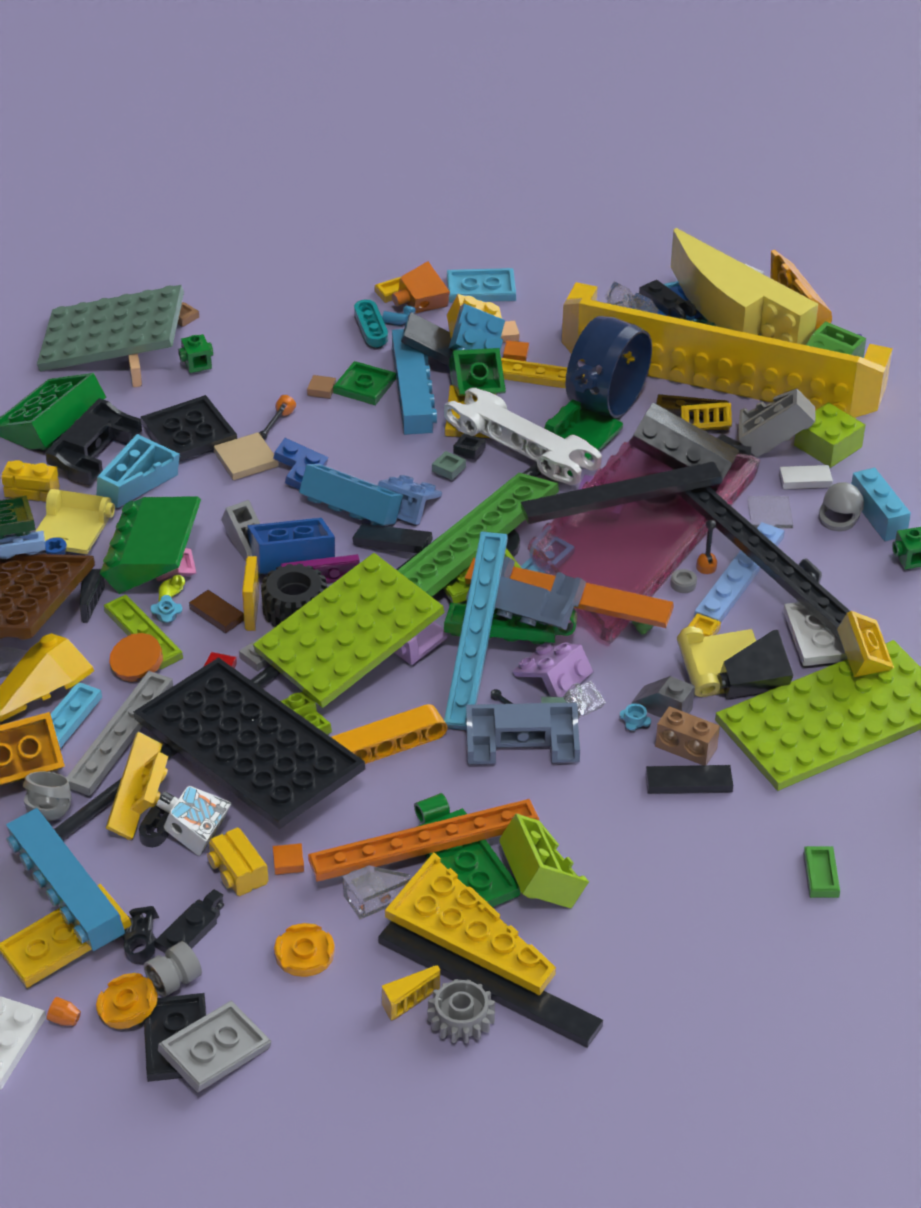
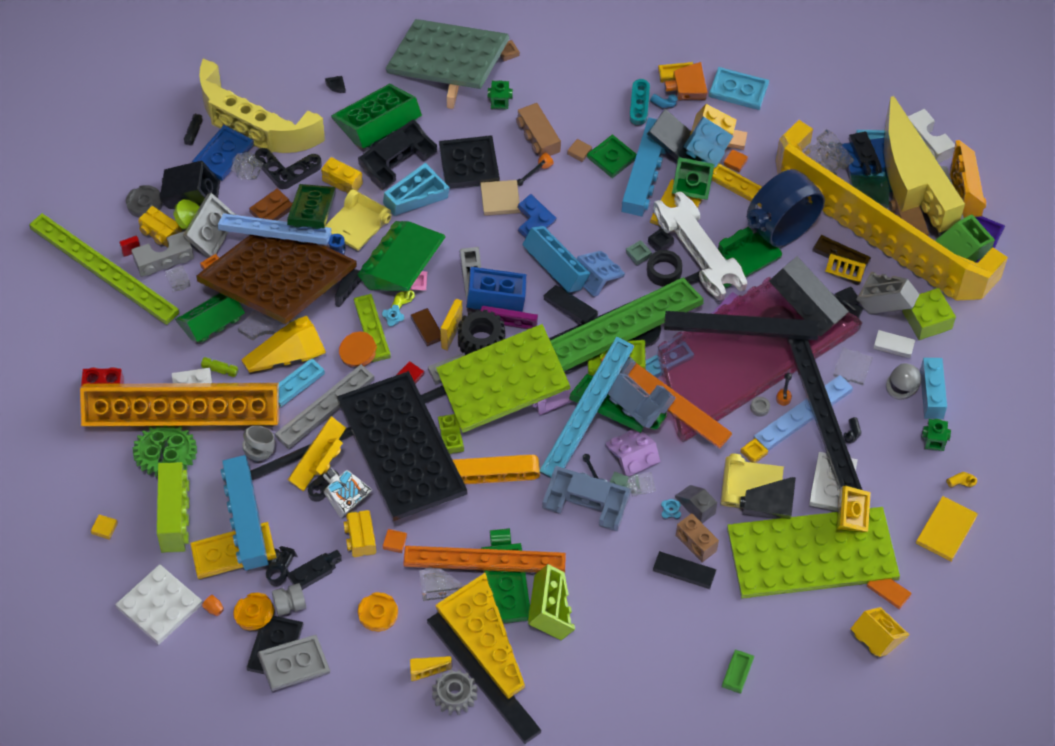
camera: 20 degrees right, 15 degrees up
(261, 376) = (538, 130): none -> medium nougat brick
(488, 460) = (664, 256): none -> black tyre

